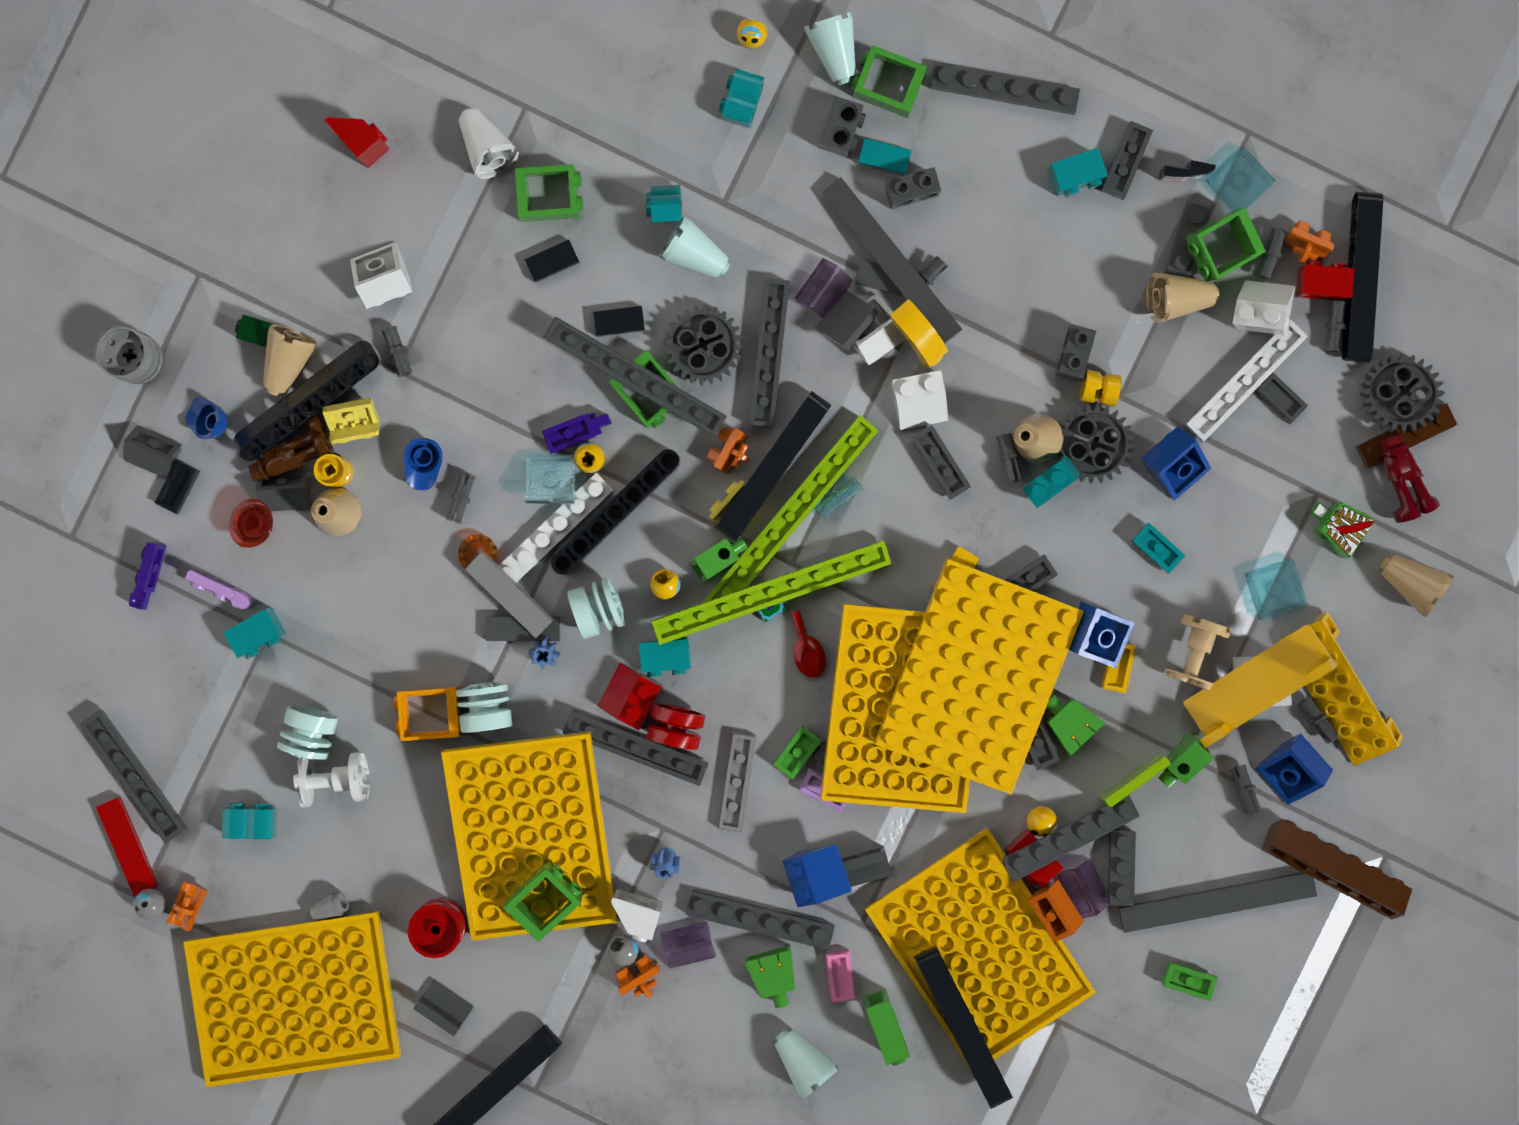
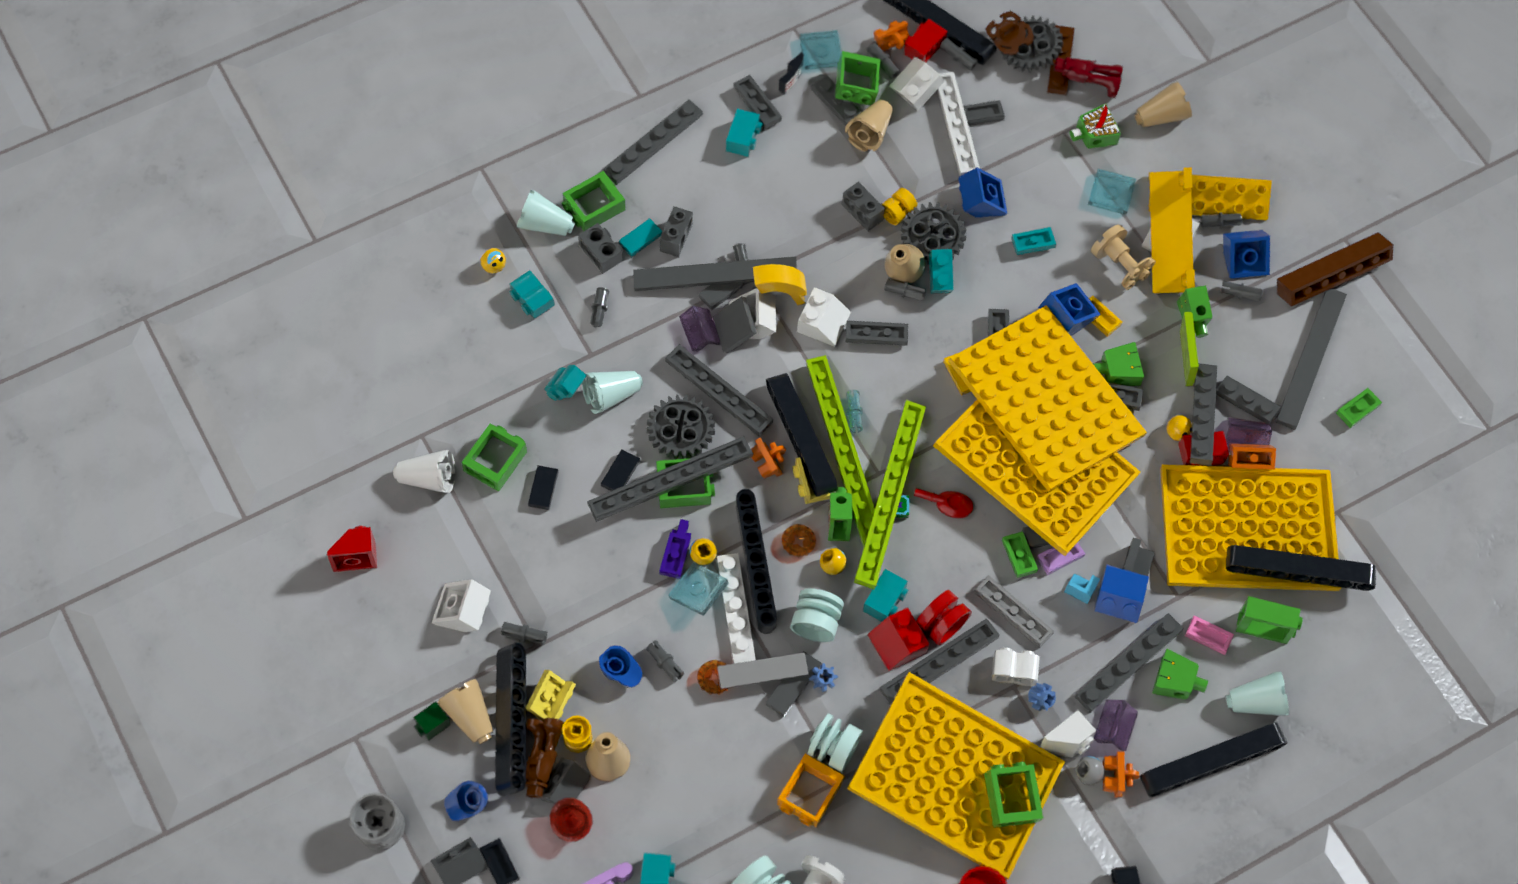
camera: 55 degrees left, 25 degrees down
(655, 541) = (801, 532): none -> clear orange gear
(678, 820) = (1015, 667): none -> white brick
(714, 1054) = (1213, 759): none -> black beam
(777, 174) = (599, 307): none -> dark grey axle
(805, 830) = (1082, 588): none -> medium azure panel
(1395, 365) = (1010, 33): none -> reddish brown shield

